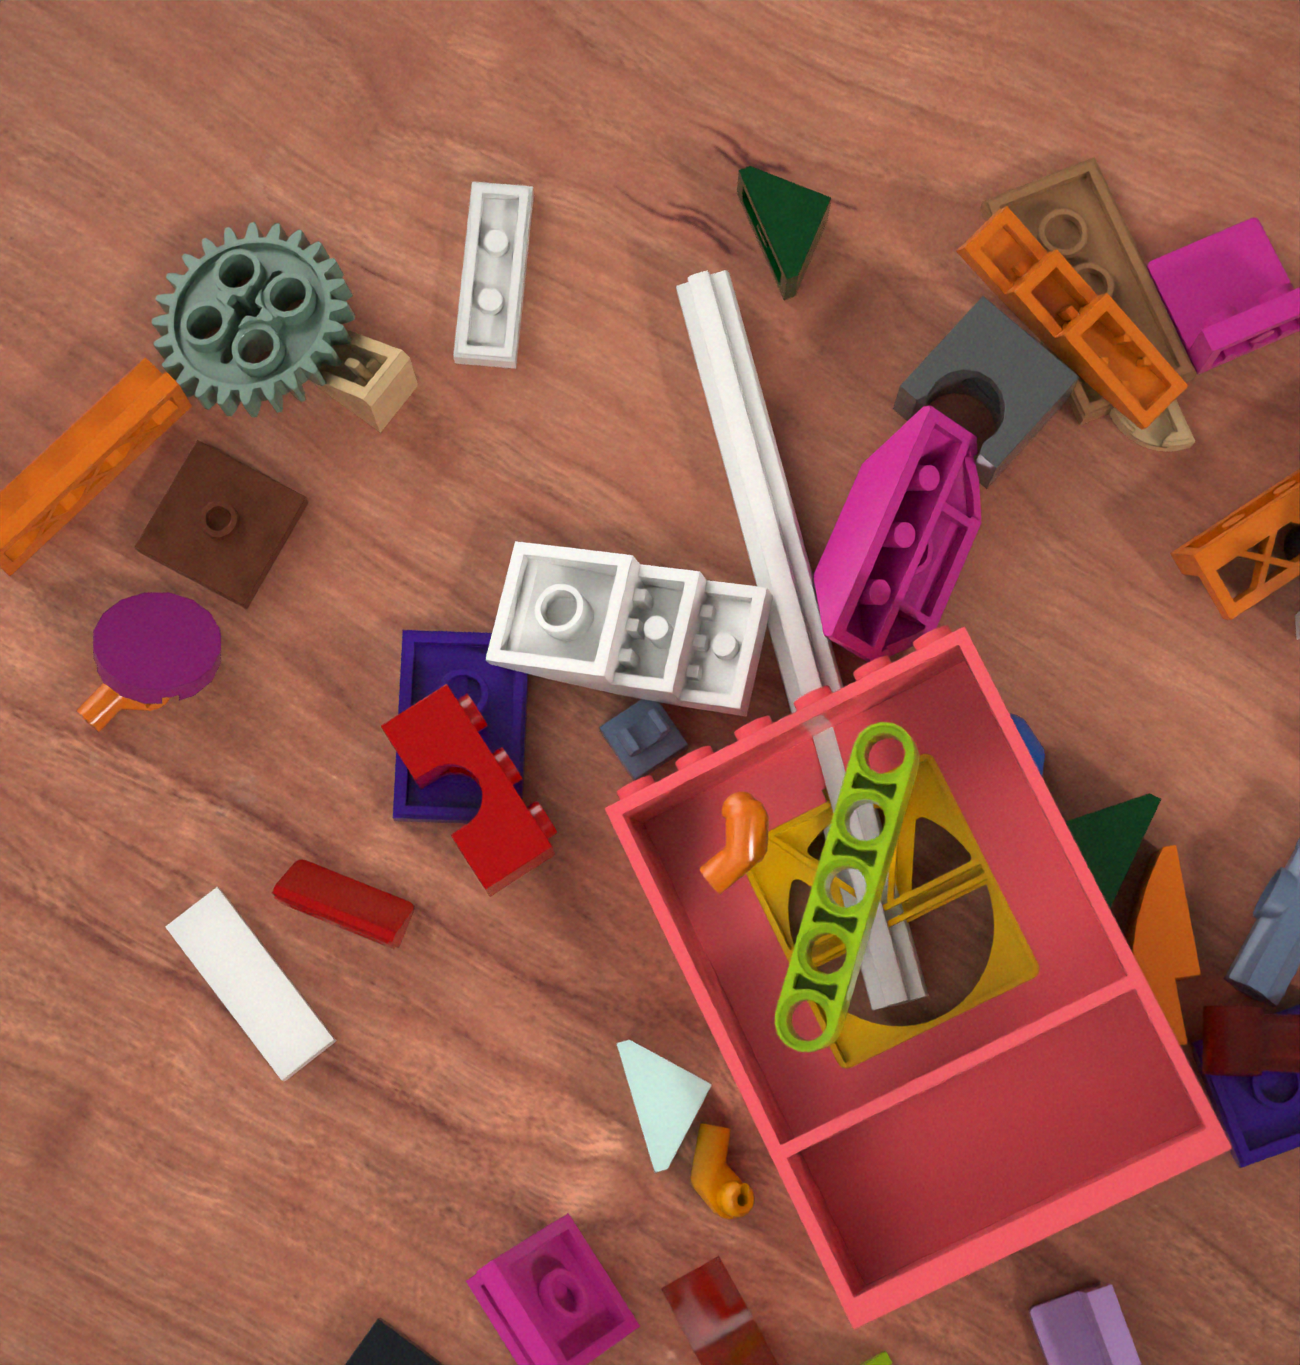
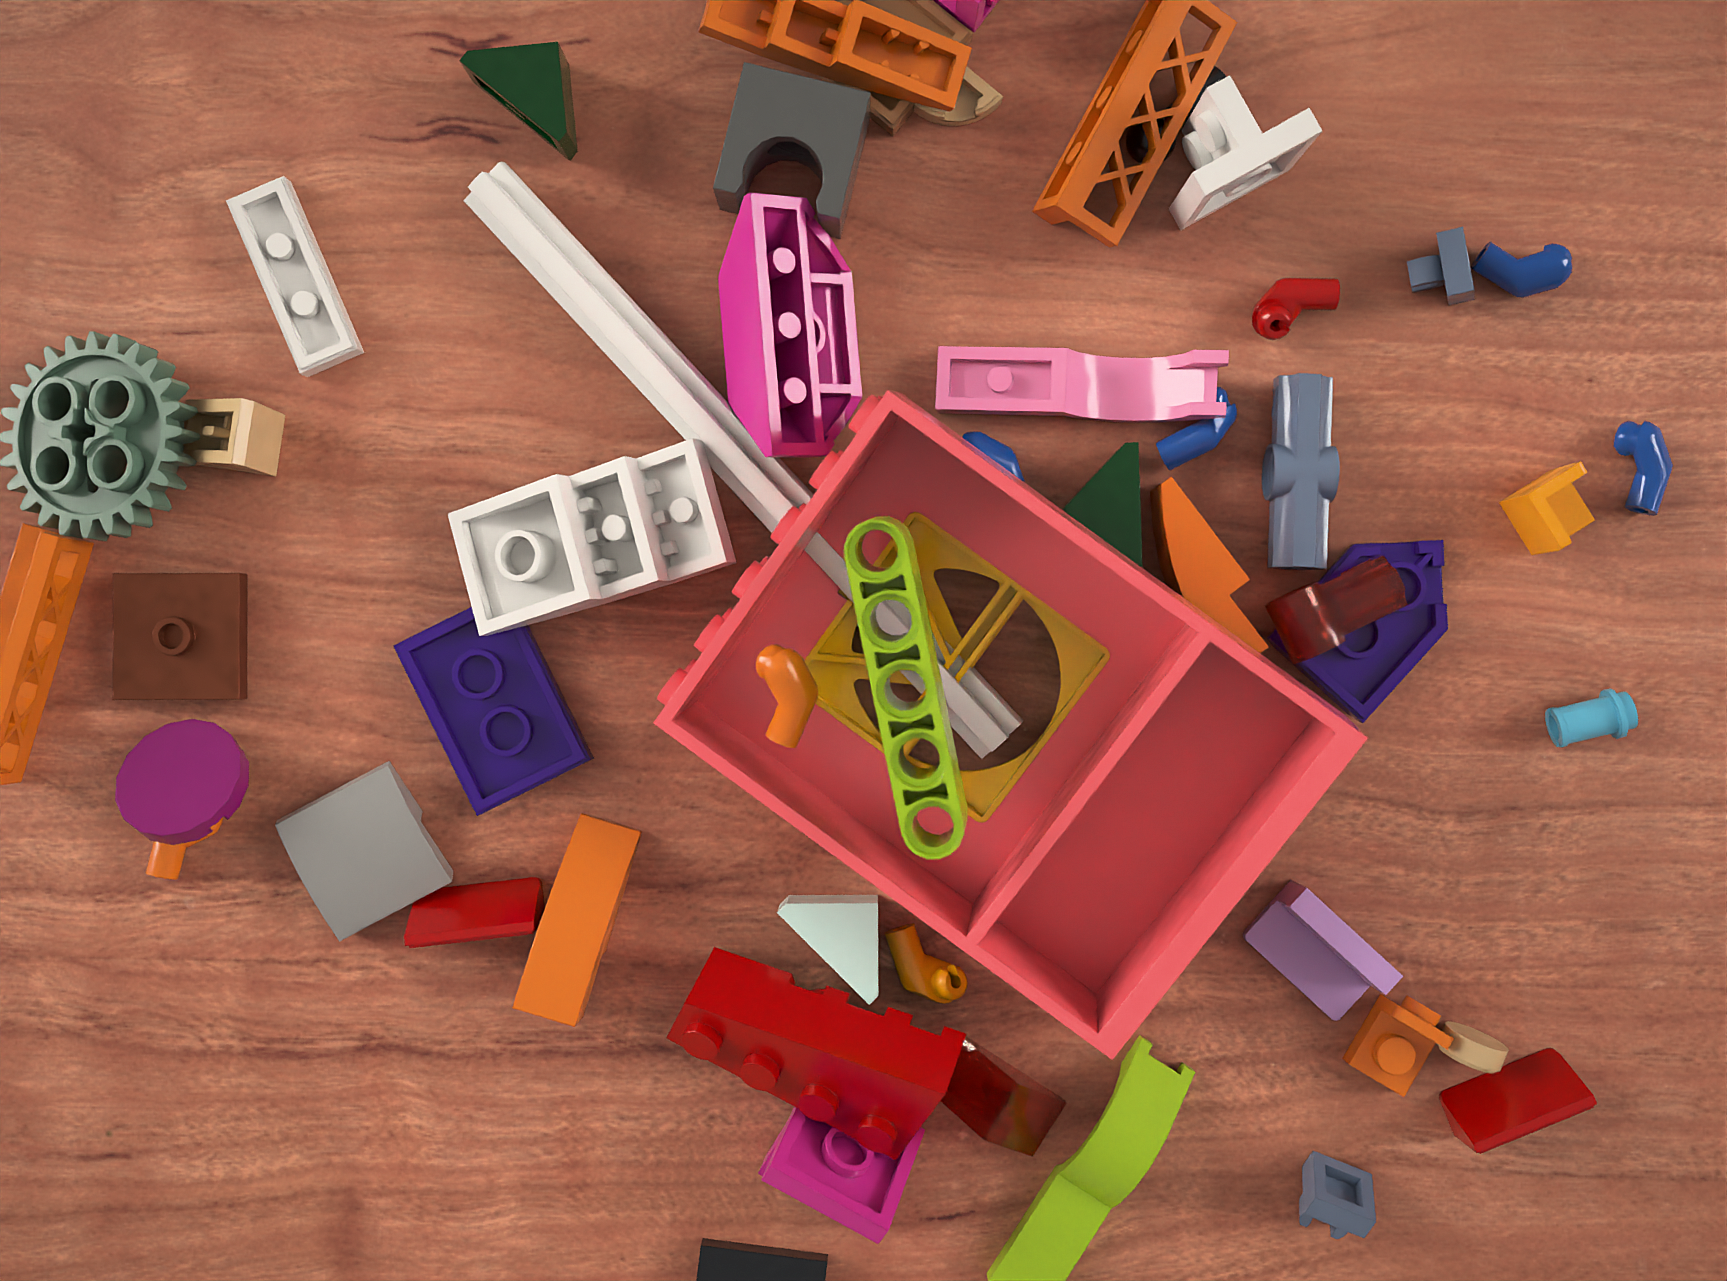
camera: 25 degrees left, 10 degrees up
(250, 984) = (434, 1023): white tile -> none
(276, 795) = (363, 851): none -> light grey slope
(431, 959) = (577, 920): none -> orange slope
(442, 740) = (580, 780): red arch -> none
(585, 1189) = (818, 1051): none -> red wedge
(643, 738) = (657, 627): sand blue tile -> none
(1134, 724) = (1079, 384): none -> bright pink piece
(1223, 828) = (1197, 437): none -> blue arm

